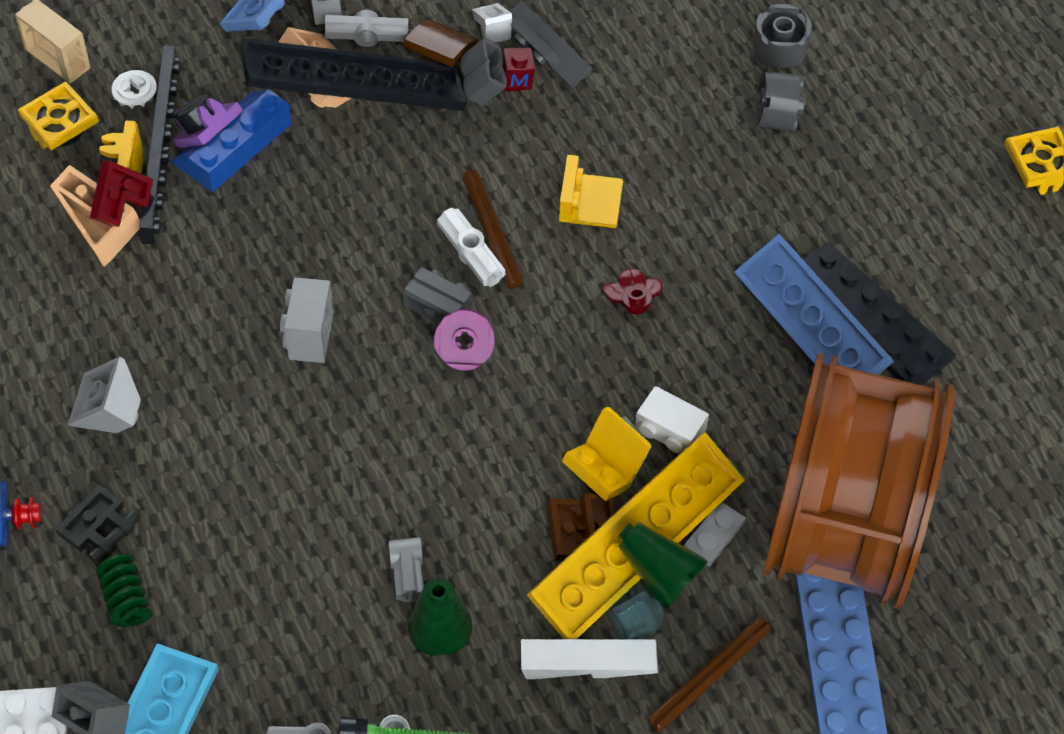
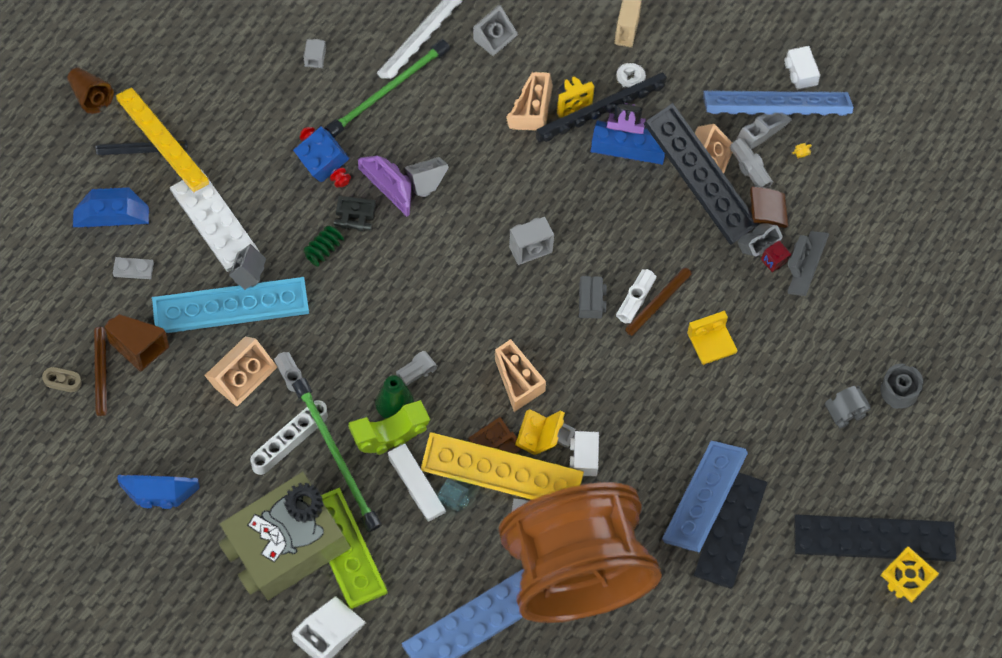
camera: 60 degrees right, 5 degrees up
(60, 115) = (582, 51): yellow piece -> none
(81, 452) = (388, 180): none -> medium lavender wedge
(114, 188) = (545, 100): dark red plate -> none
(477, 327) = (580, 323): plate -> none
(490, 641) = (391, 432): none -> lime brick
(494, 22) = (802, 225): white slope -> none
(503, 442) = (518, 375): none -> light nougat wedge
(633, 291) = (666, 392): dark red plate -> none
(660, 562) = (488, 488): dark green cone -> none
(708, 674) = (444, 548): reddish brown axle -> none
(963, 175) = (873, 537): none -> black plate

